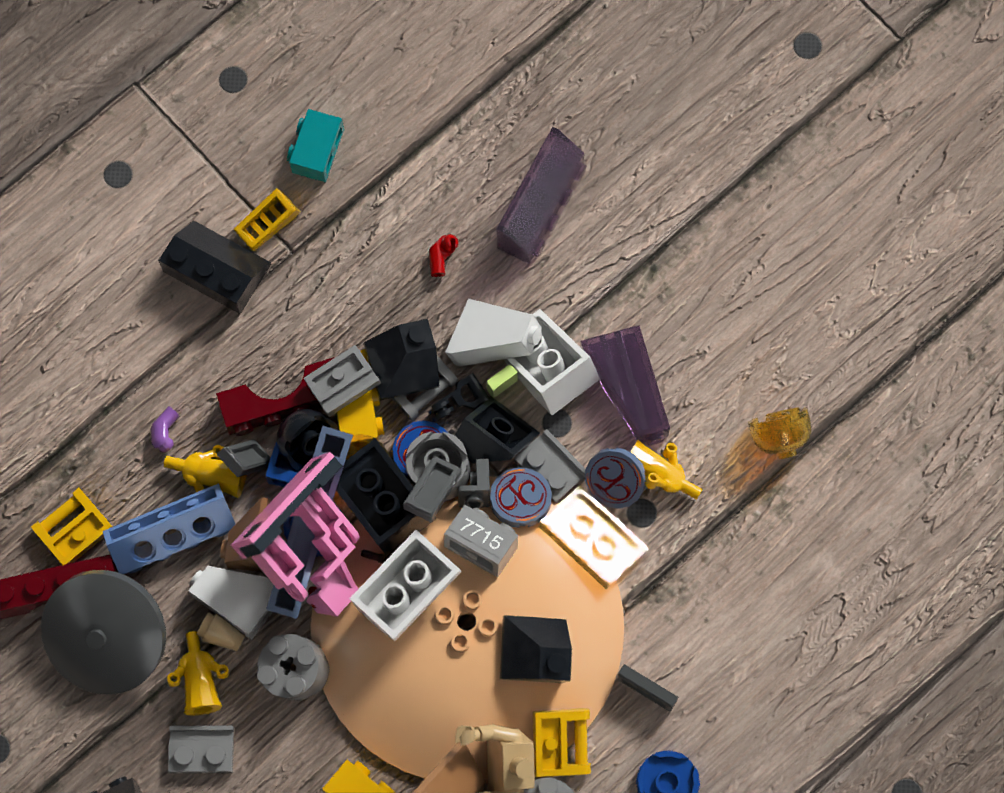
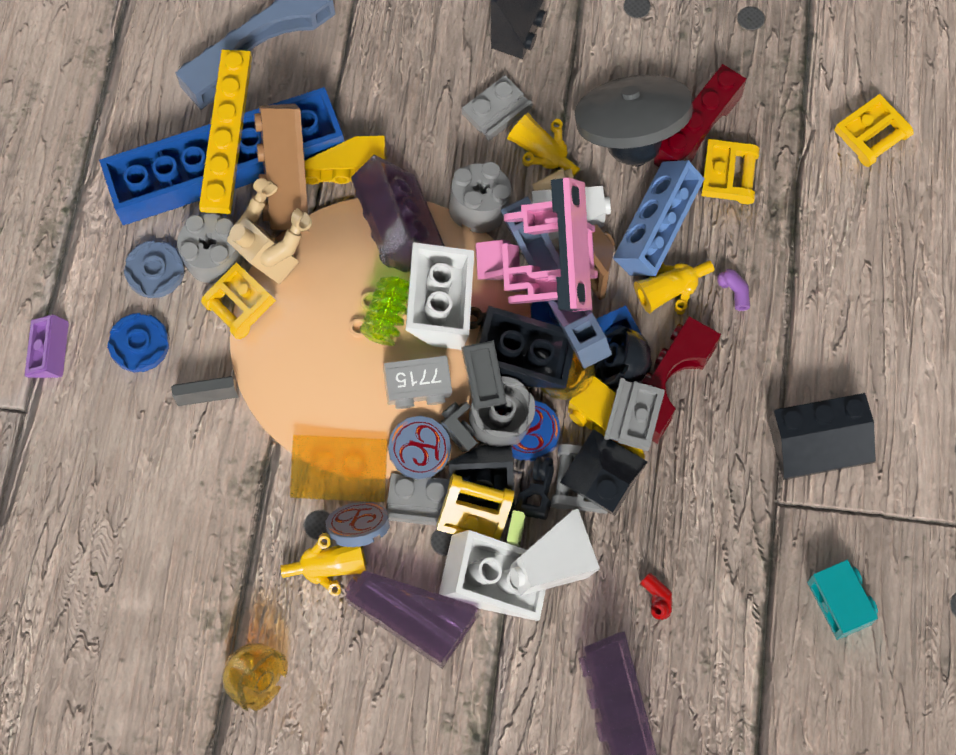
camera: 140 degrees right, 5 degrees down
(245, 458) = (653, 306): dark grey tile -> none
(273, 227) = (816, 528): yellow slope -> none
(374, 700) = (394, 211): none -> clear purple slope
(456, 610) = (385, 310): none -> clear neon green piece
(525, 409) = (461, 516): none -> yellow plate
(535, 649) = (306, 337): black slope -> none

